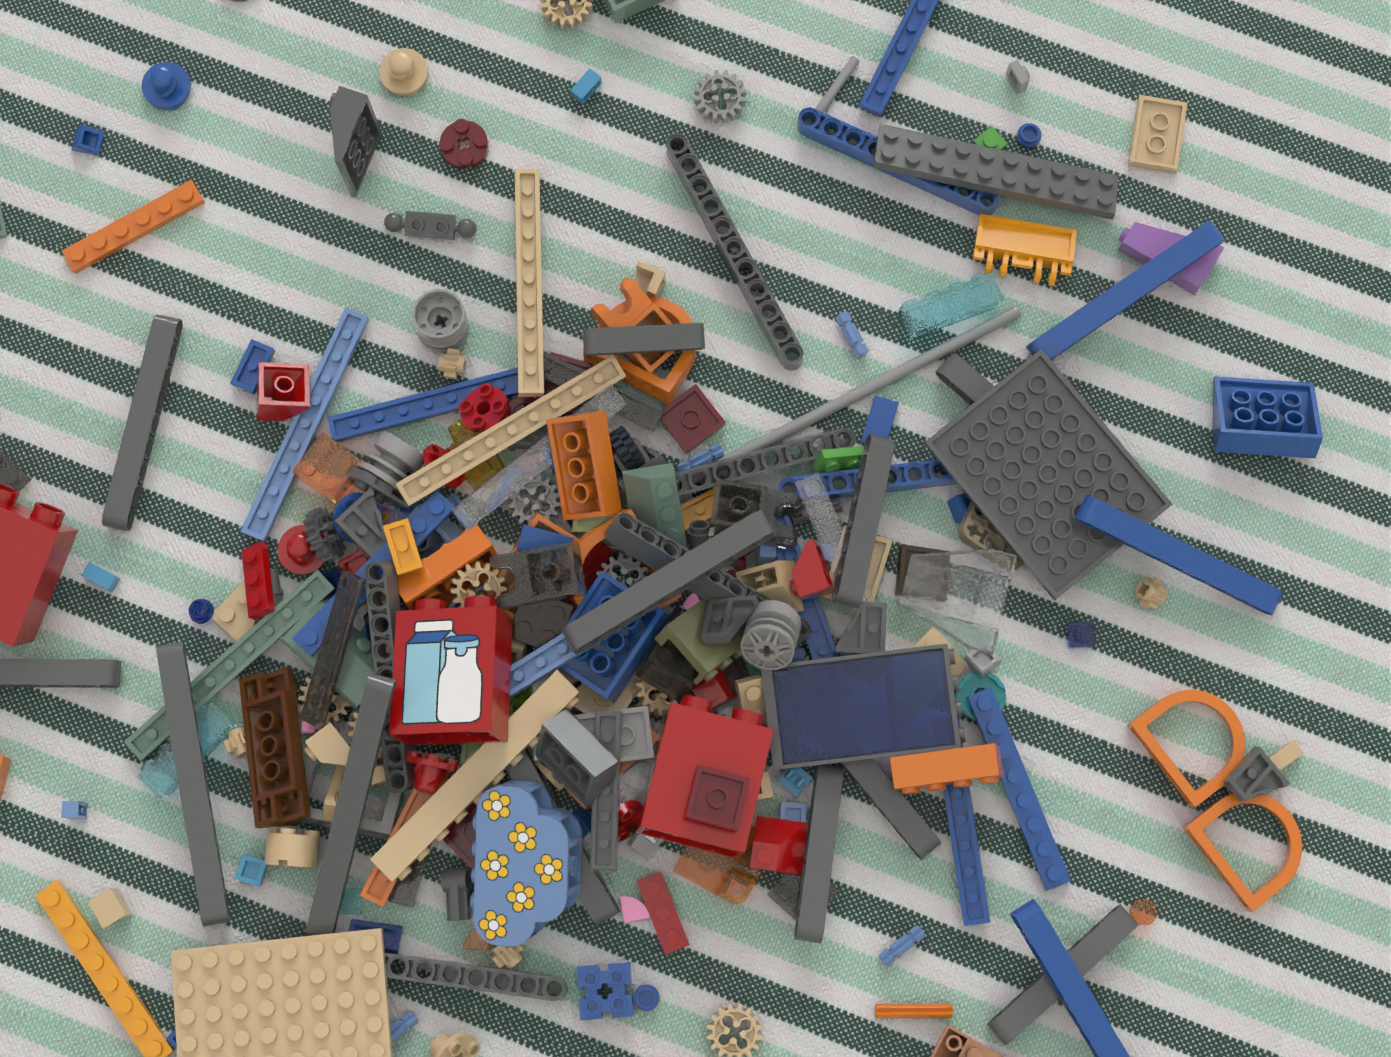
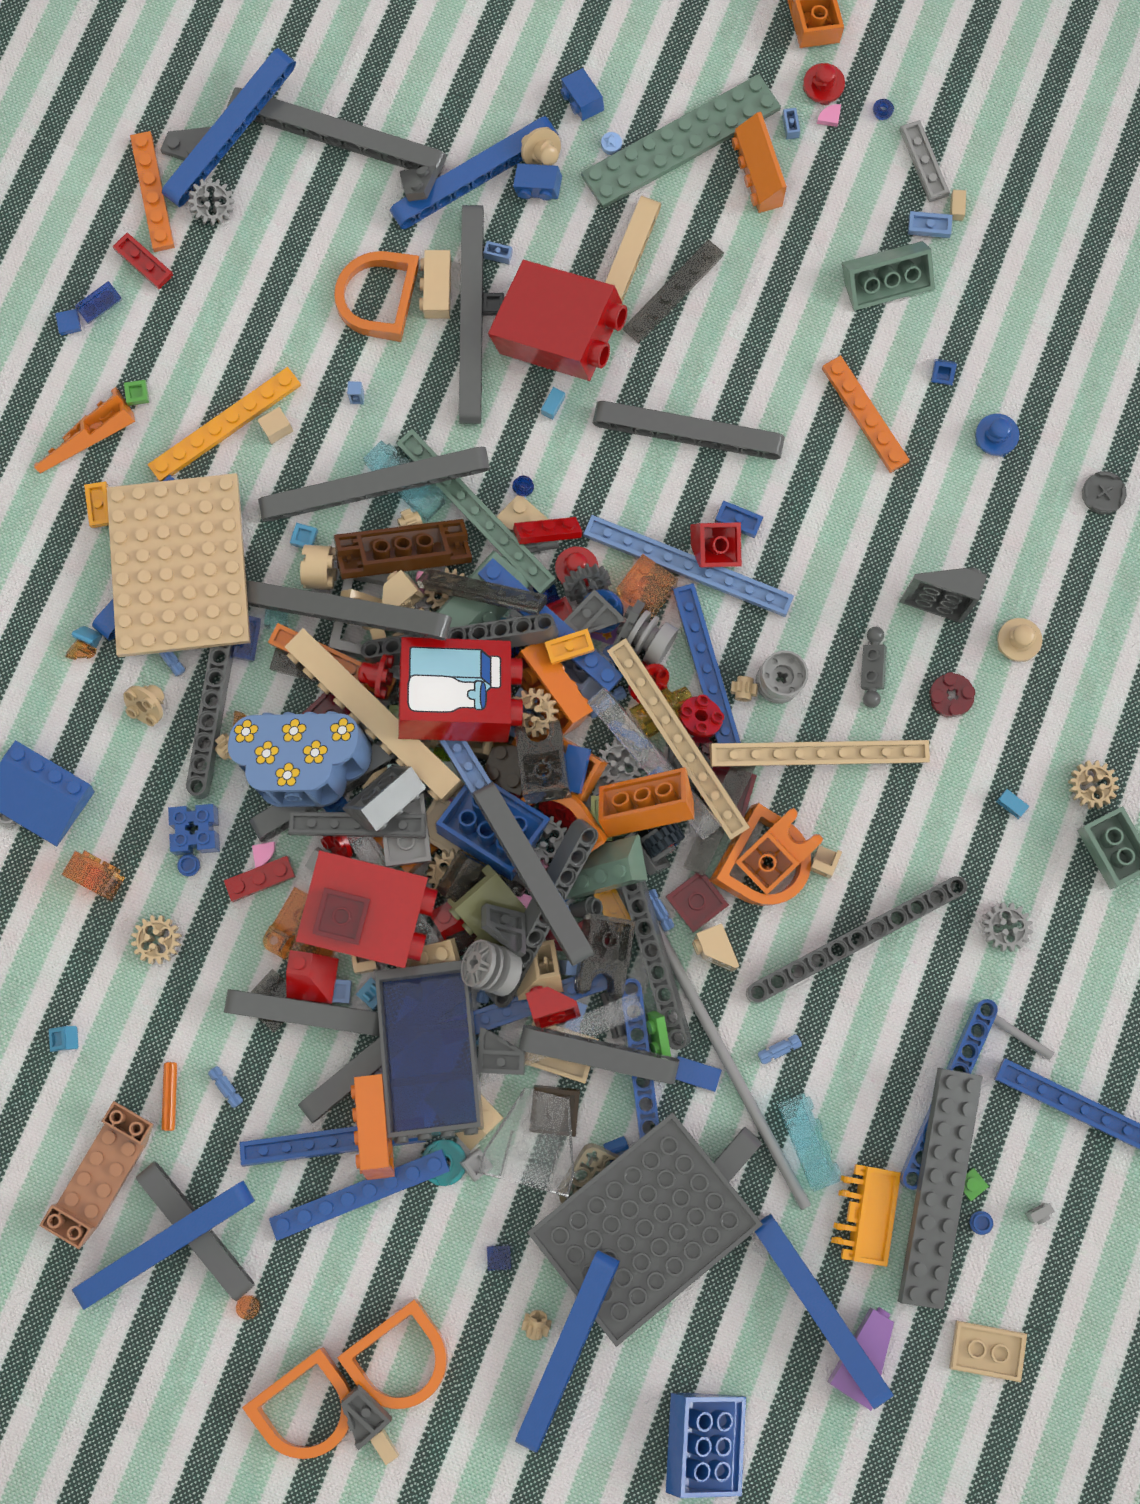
camera: 90 degrees right, 0 degrees up
(457, 886) = (286, 702): dark grey piece -> none
(643, 339) = (763, 854): dark grey beam -> none
(743, 395) = (715, 947): none -> tan slope

